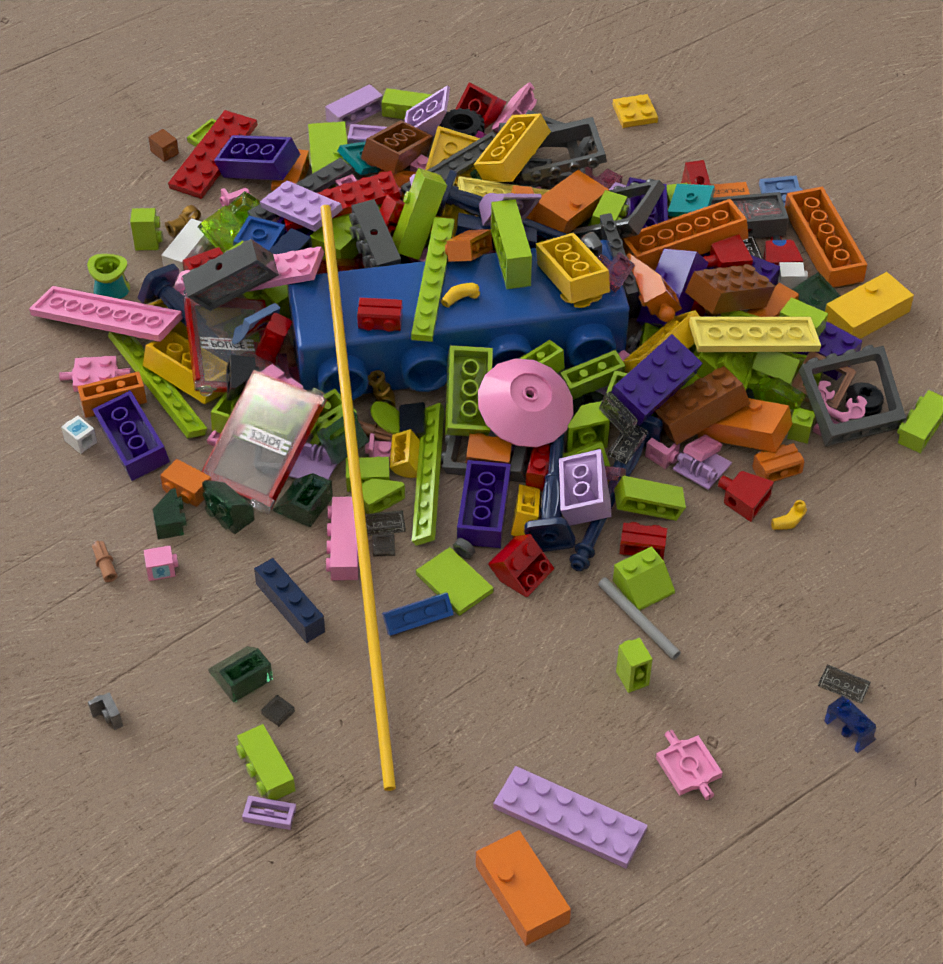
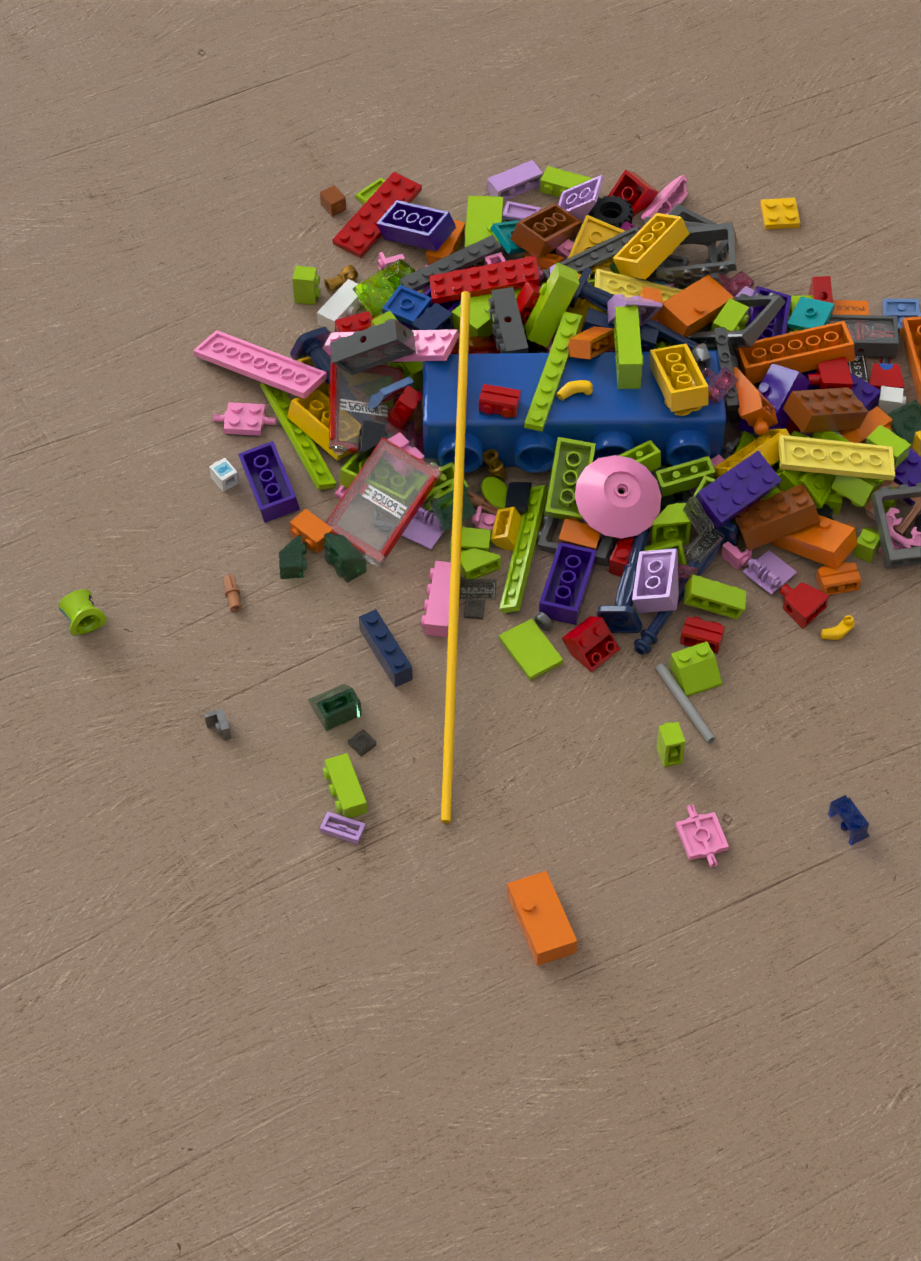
camera: 10 degrees right, 5 degrees up
(102, 391) = (249, 438): orange brick -> none
(109, 275) = (267, 327): lime hat -> none
(160, 563) = (280, 600): bright pink brick -> none
(299, 205) = (447, 280): lavender plate -> none
(305, 499) = (412, 559): clear green slope -> none
(417, 613) = (493, 674): blue plate -> none
(525, 508) = (604, 591): yellow slope -> none
(570, 817) = (593, 865): lavender plate -> none
(702, 448) = (772, 556): bright pink tile -> none
(779, 392) = (850, 513): clear neon green slope -> none
(844, 684) = (852, 784): clear smoke tile -> none

